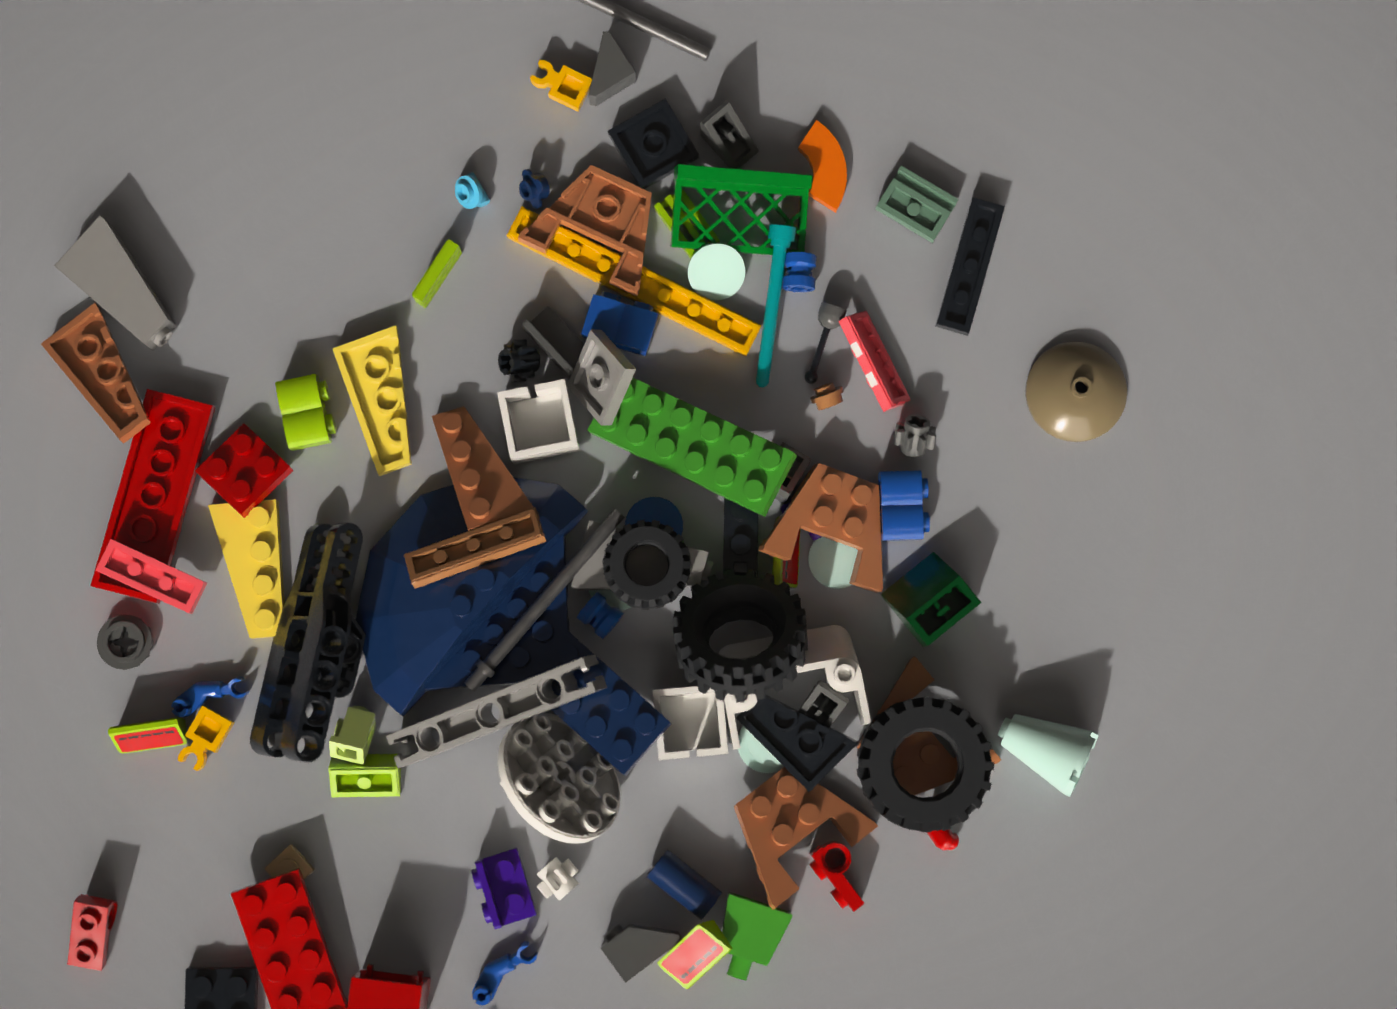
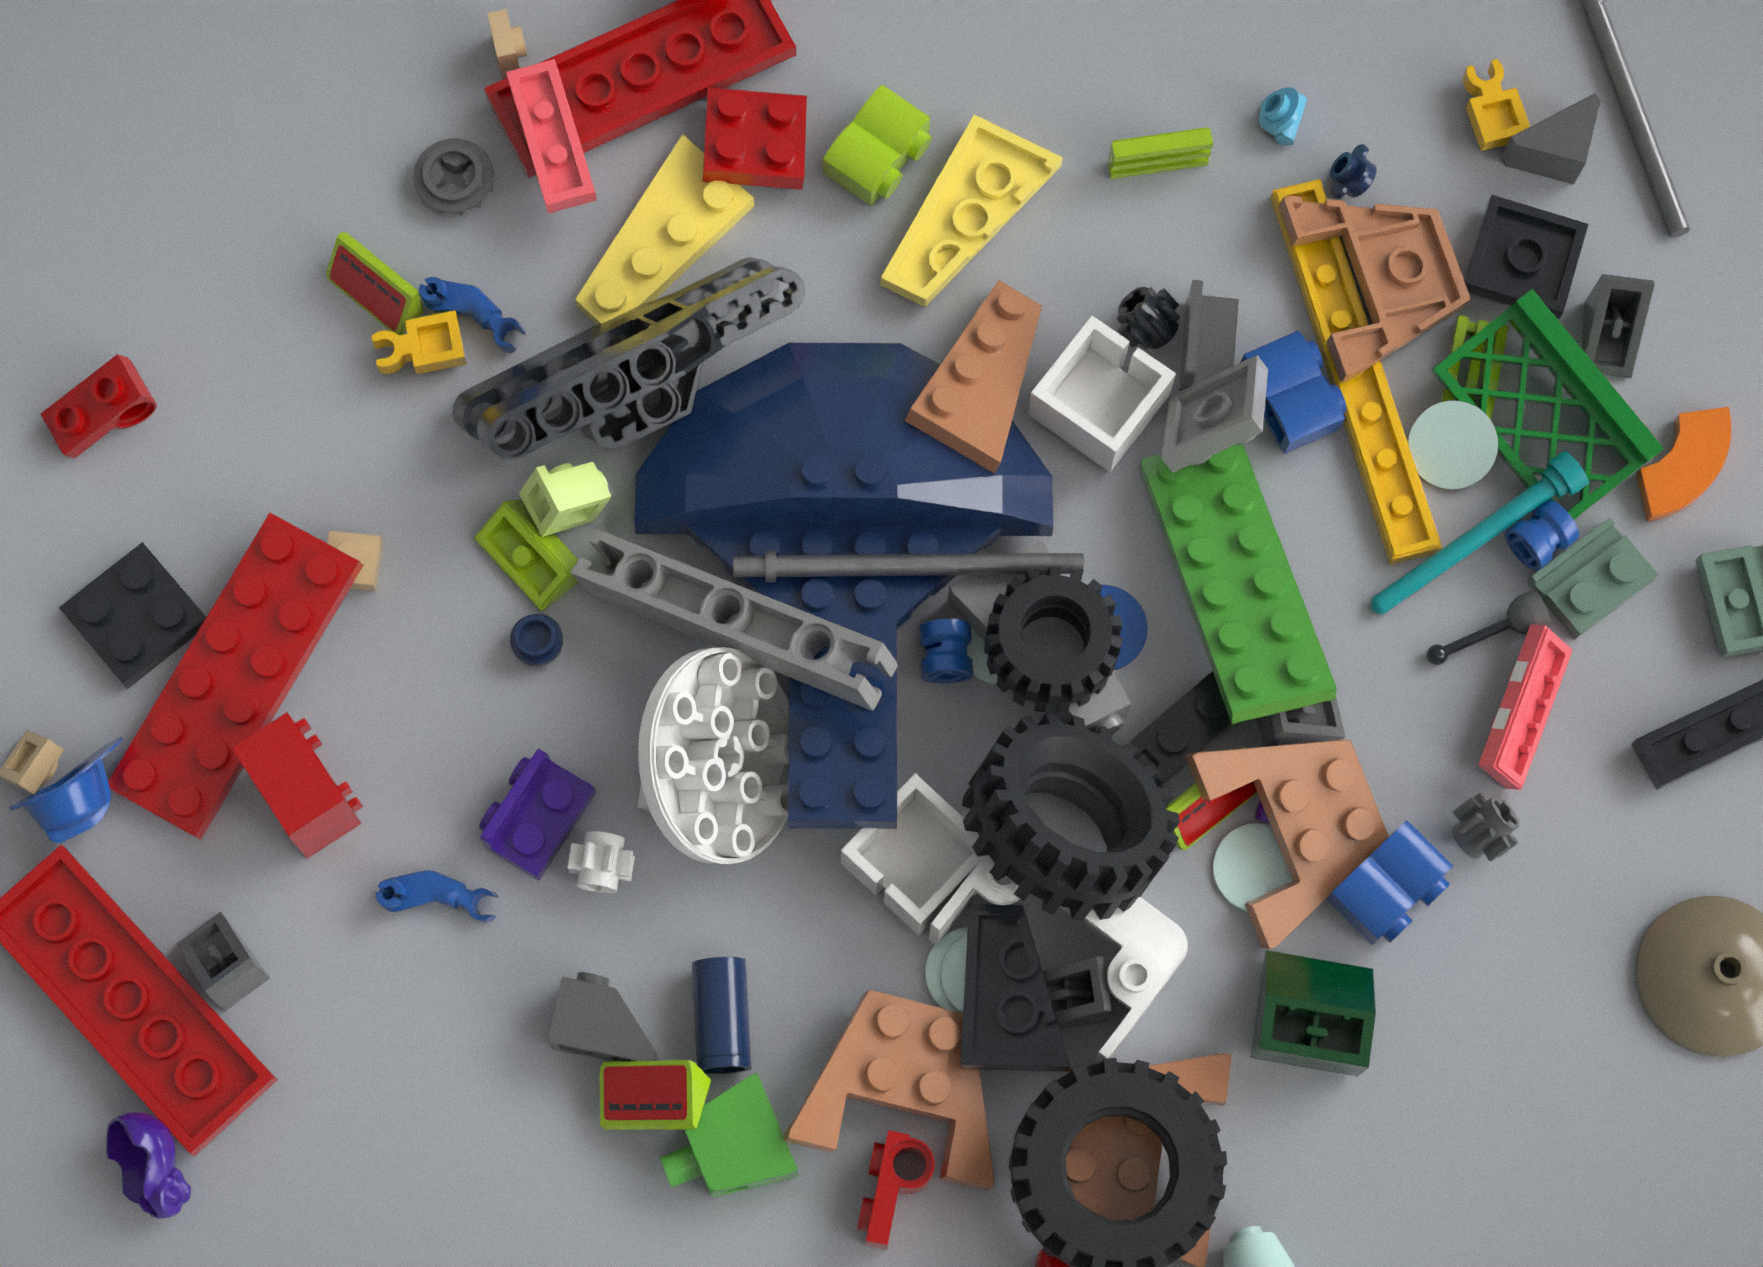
camera: 50 degrees right, 10 degrees down
(75, 551) = (507, 41): none -> tan plate
(414, 811) = (536, 639): none -> dark blue plate
(475, 548) = (897, 434): medium nougat tile -> none
(827, 396) = (1433, 688): medium nougat plate -> none
(840, 266) = (1592, 578): none -> sand green plate

